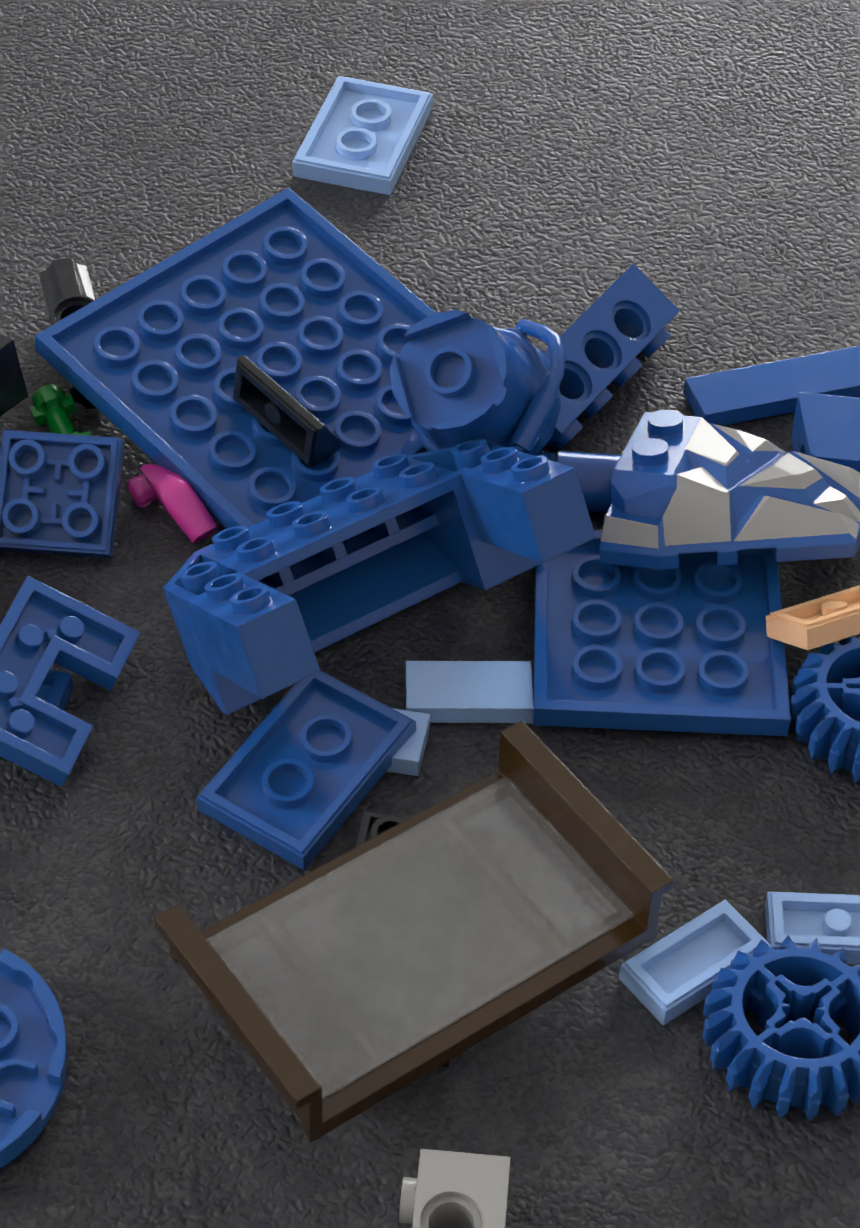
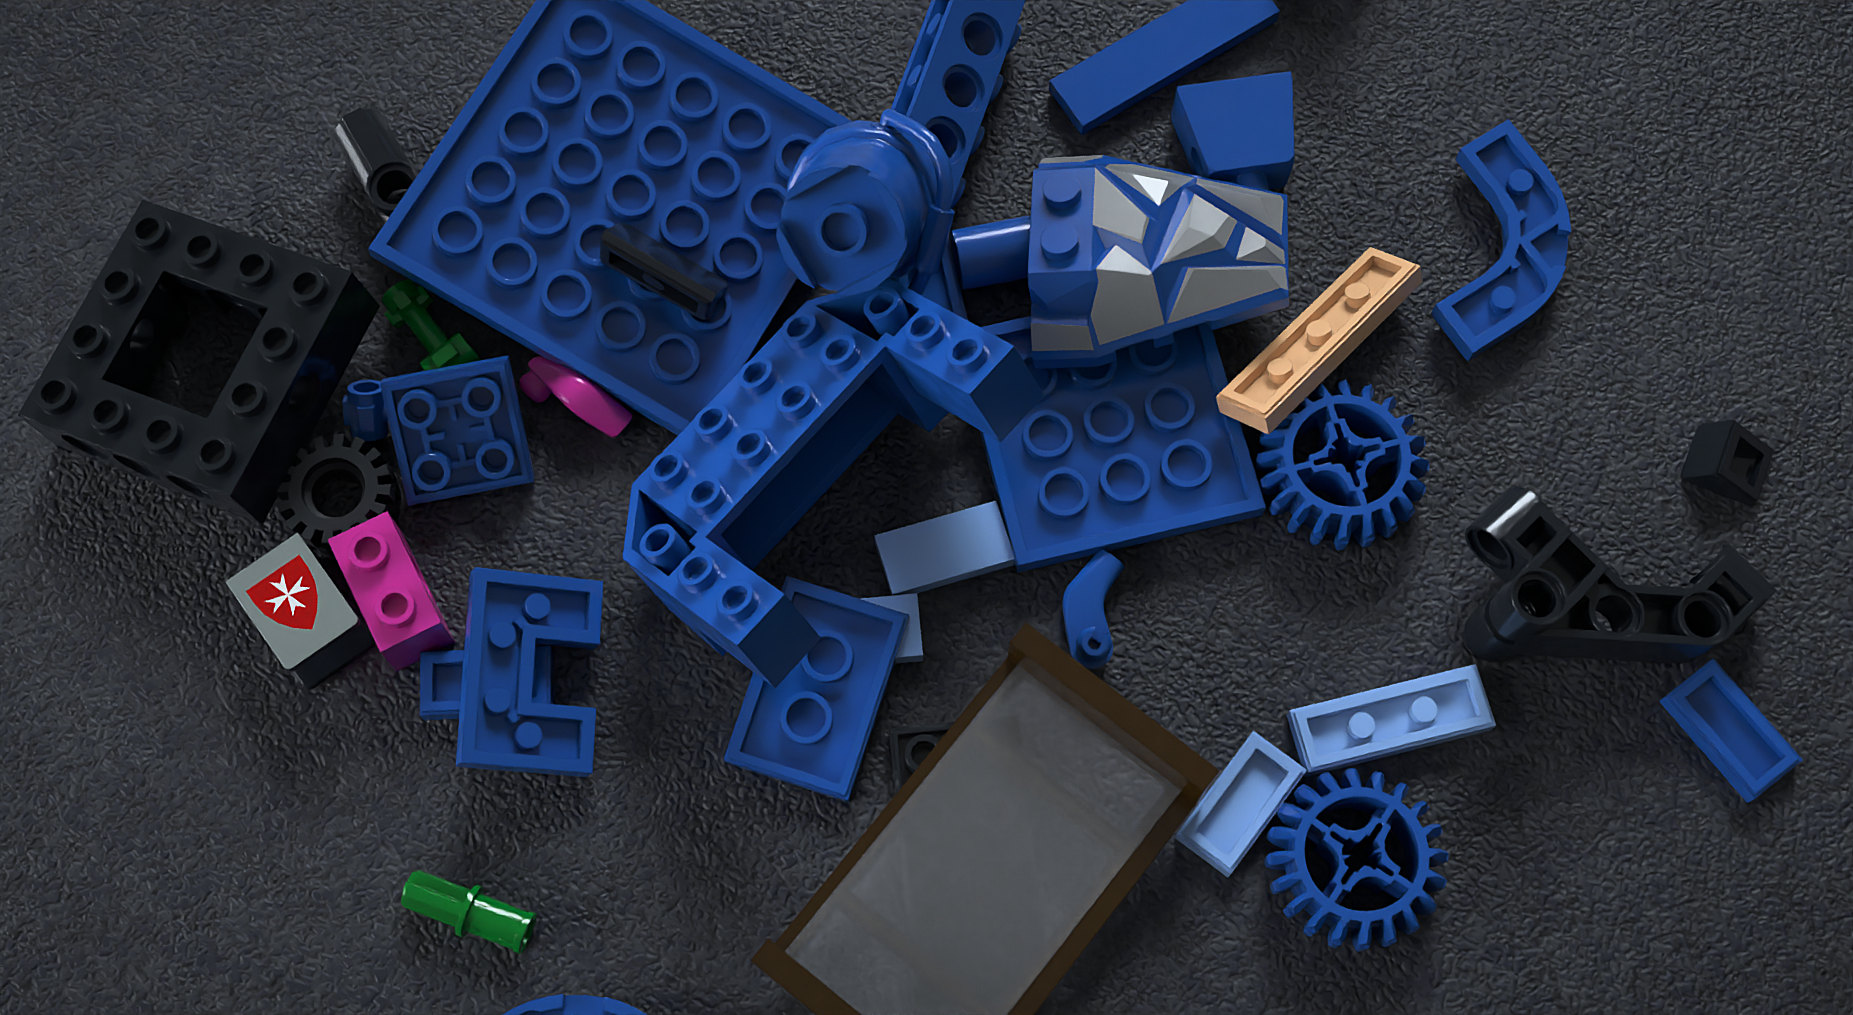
camera: 15 degrees left, 25 degrees up
(597, 752) = (1084, 610): none -> blue arm

